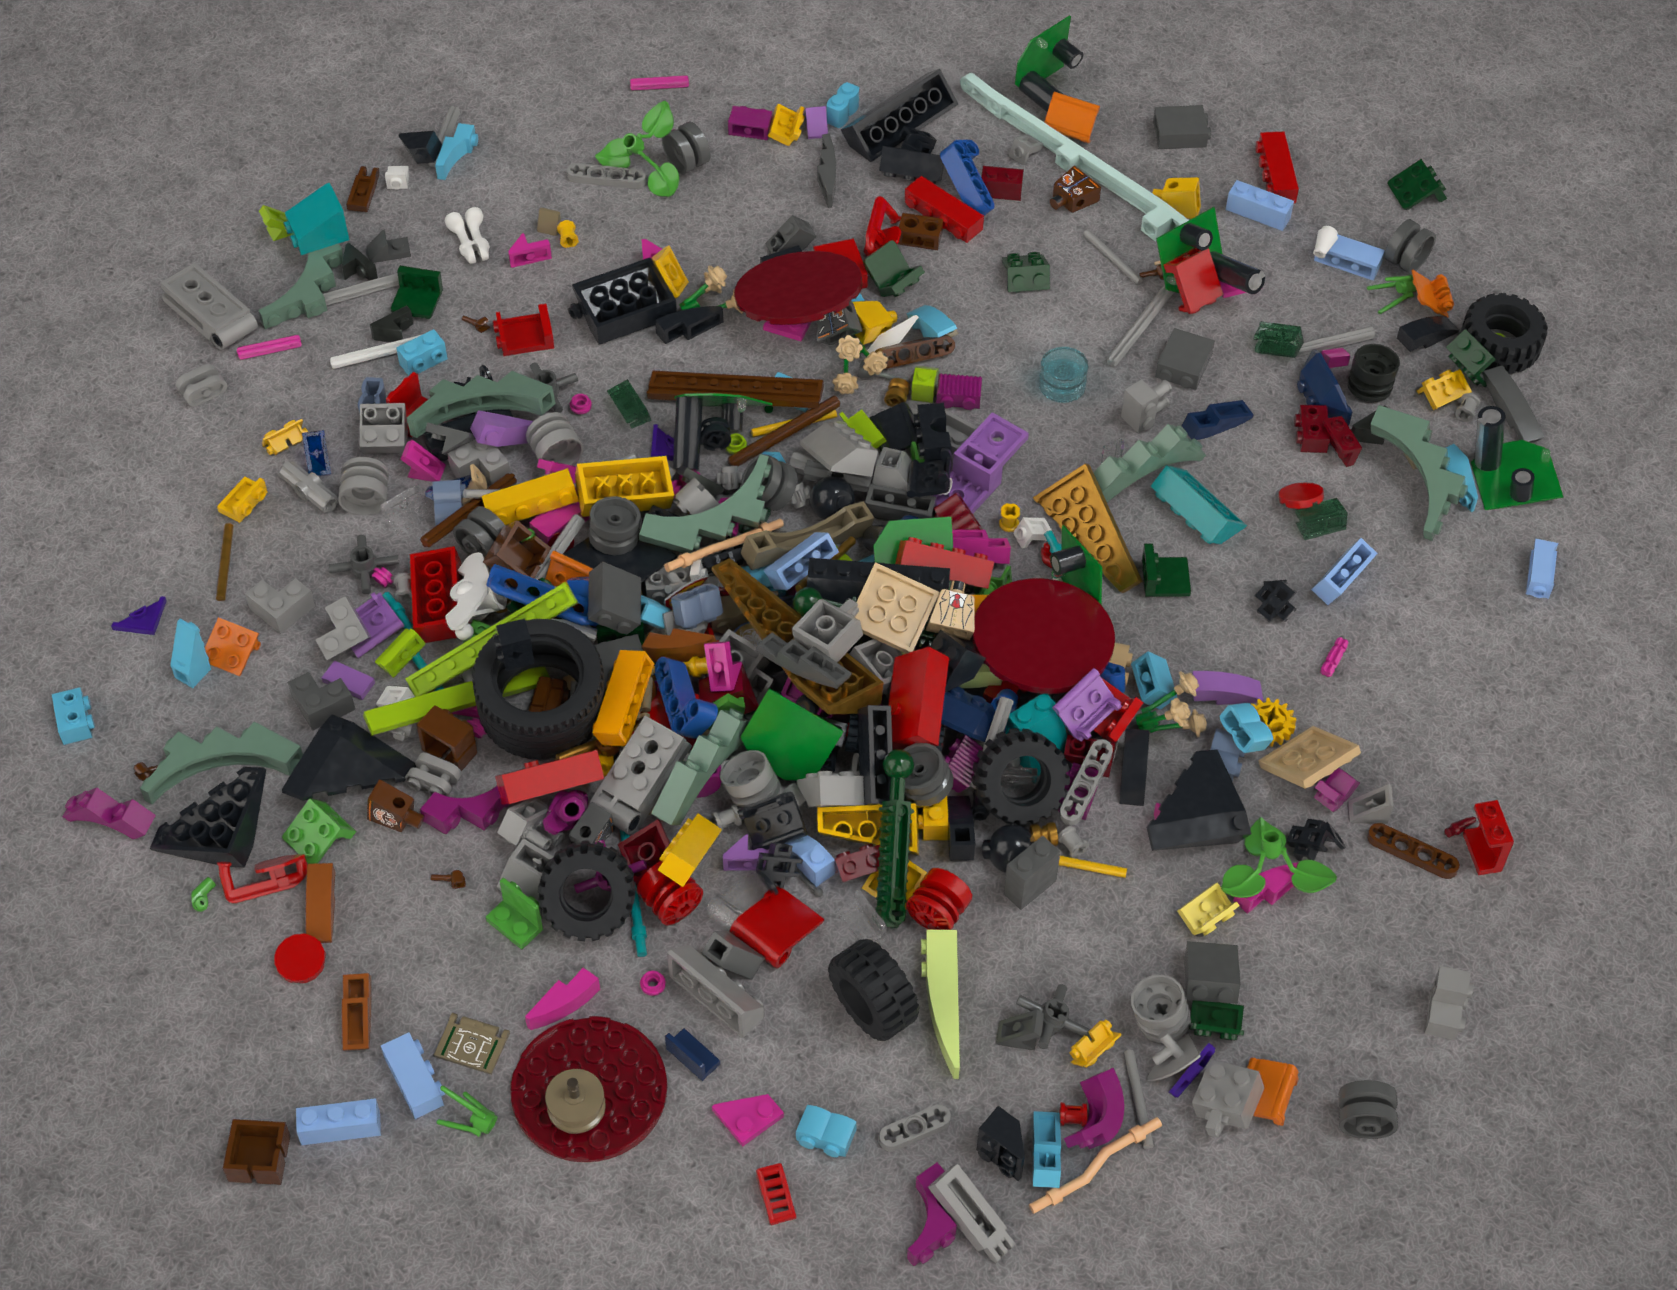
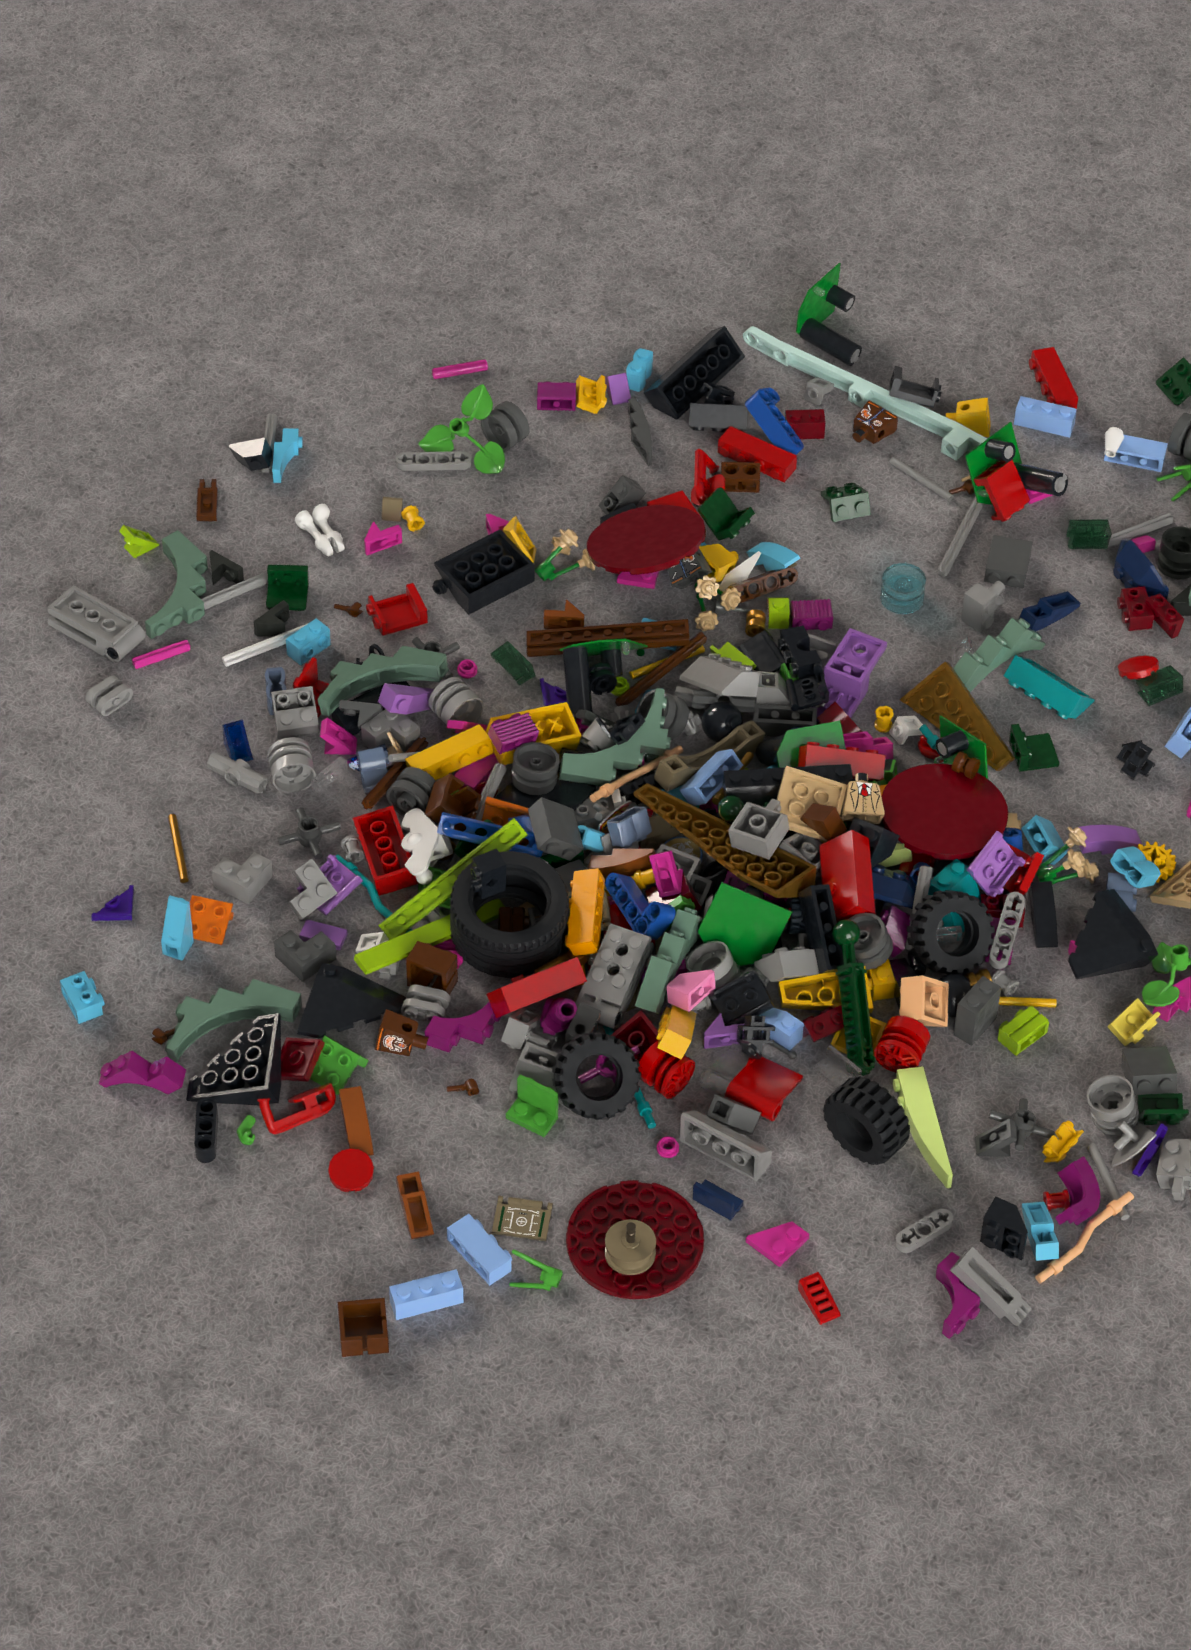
camera: 10 degrees left, 5 degrees down
(155, 878) = (207, 1120): none -> black beam
(243, 499) = (179, 791): yellow bracket -> none
(277, 439) = (207, 726): yellow hinge -> none
(278, 820) = (299, 1058): none -> dark red plate
(317, 221) = (180, 533): teal slope -> none
(382, 576) = (329, 842): dark pink plate -> none
(384, 250) = (244, 552): dark grey slope -> none
(397, 177) = (236, 485): white bracket -> none
(400, 652) = (365, 903): lime panel -> none
(563, 999) = (594, 1170): dark pink slope -> none
(595, 483) = (512, 732): none -> magenta brick
(688, 322) = (547, 584): black slope -> none
(695, 363) = (564, 619): none -> dark orange slope
(714, 495) = (623, 728): none -> black piece
(716, 803) = (690, 988): none -> bright pink slope
(806, 663) = (749, 859): dark grey slope -> none
(826, 1131) = (849, 1242): medium azure brick -> none
(904, 631) = (824, 821): none -> reddish brown slope
(973, 854) = (925, 1000): none -> light nougat slope
(1072, 116) = (856, 355): orange piece -> none
(1079, 586) = (966, 765): none -> reddish brown wheel
(1080, 901) = (1022, 1030): none -> lime brick
(1123, 161) = (913, 391): none -> black panel
(1181, 127) = (957, 354): dark grey brick -> none

